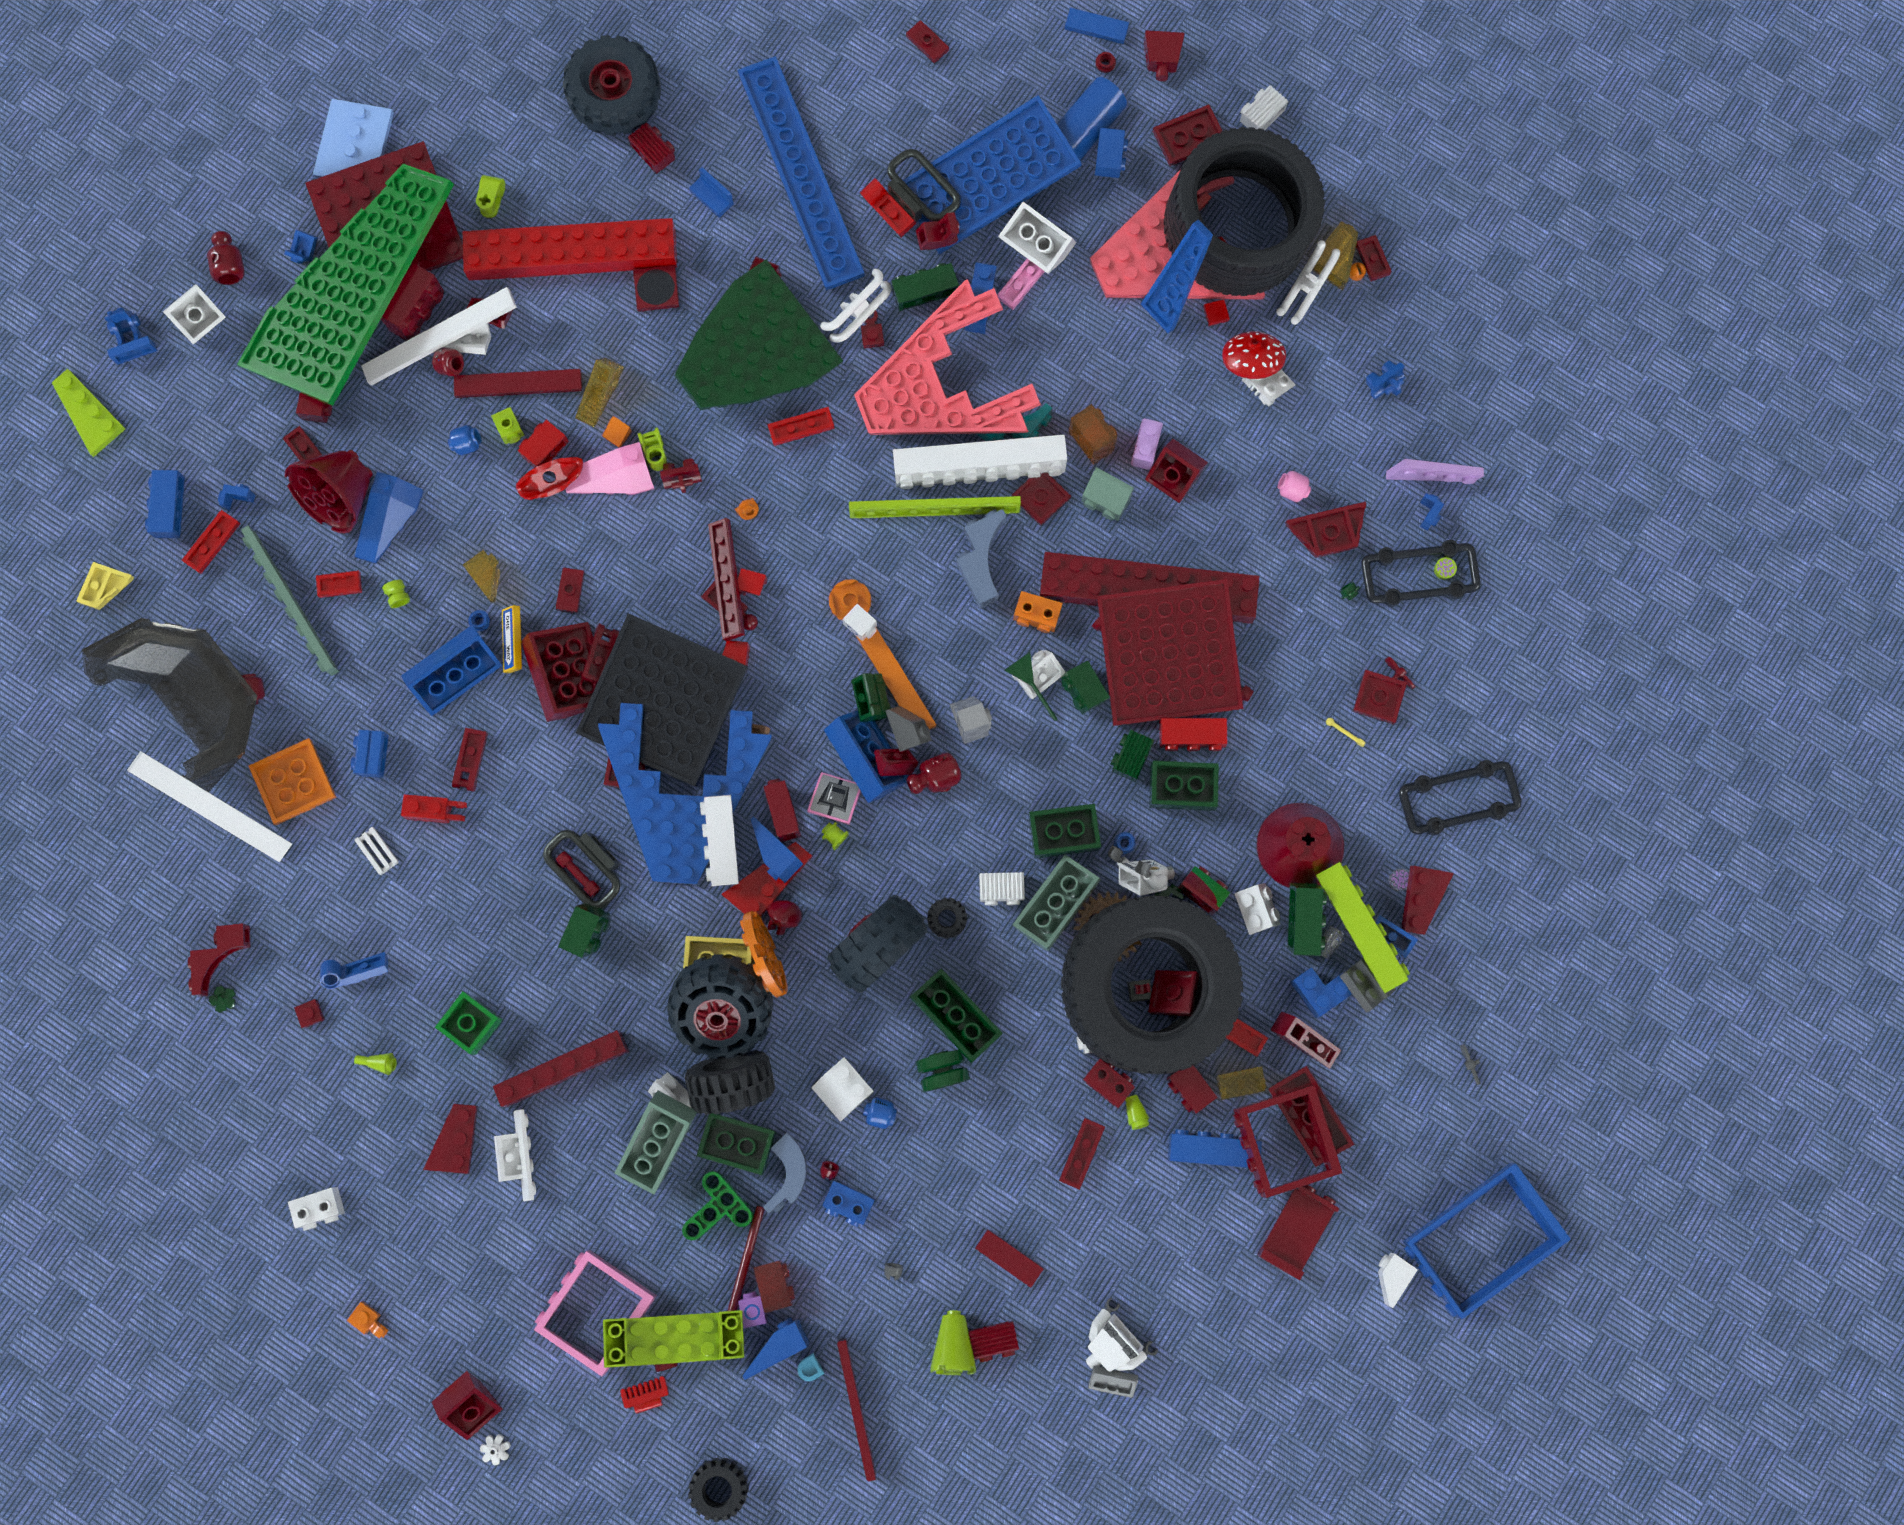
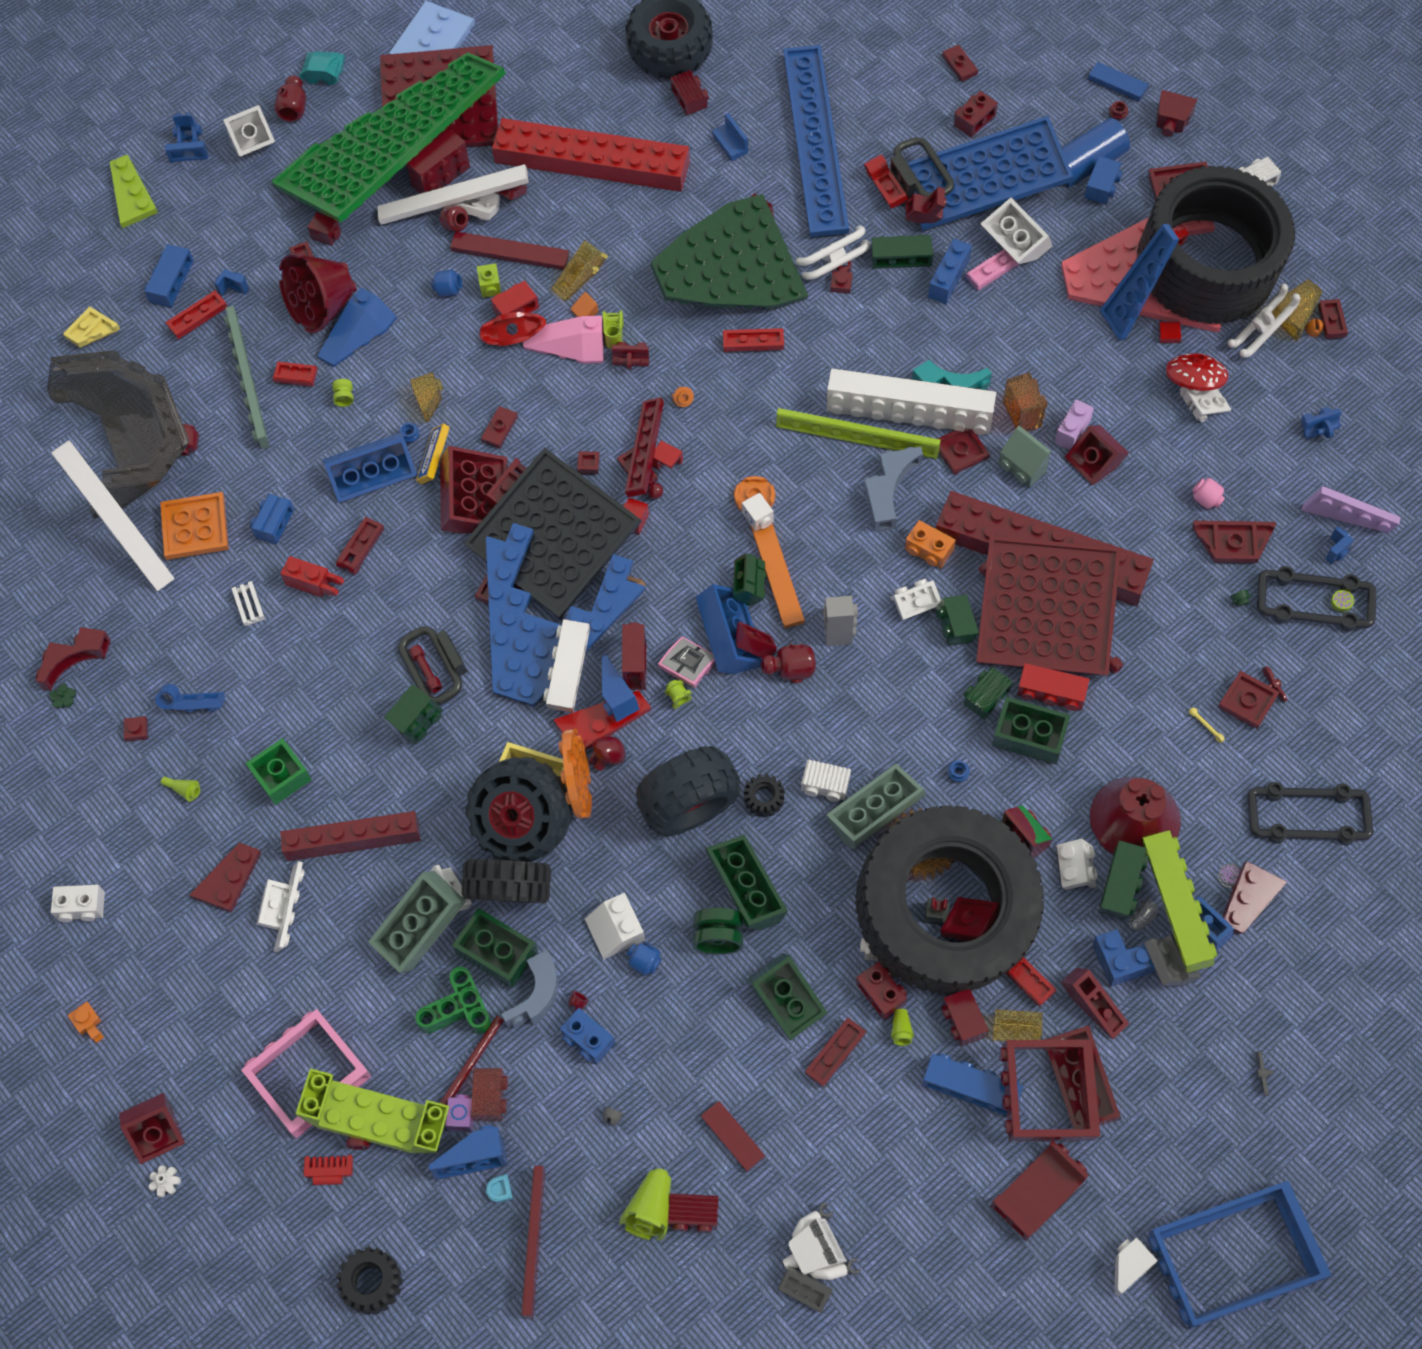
camera: 20 degrees right, 15 degrees down
(245, 208) = (322, 66): none -> teal slope
(302, 247) = (360, 104): blue bracket -> none
(489, 195) = (535, 99): lime piece -> none
(656, 288) = (657, 202): tile -> none
(673, 608) = (588, 462): none -> dark red plate
(908, 393) = (862, 330): coral wing -> none
(908, 728) = (776, 616): dark grey slope -> none
(959, 102) = (975, 114): none -> dark red brick
(1022, 1112) = (787, 995): none -> dark green slope
(1023, 670) = (901, 589): dark green piece -> none
(1064, 831) = (901, 742): dark green brick -> none
(1141, 876) = (967, 795): white torso -> none

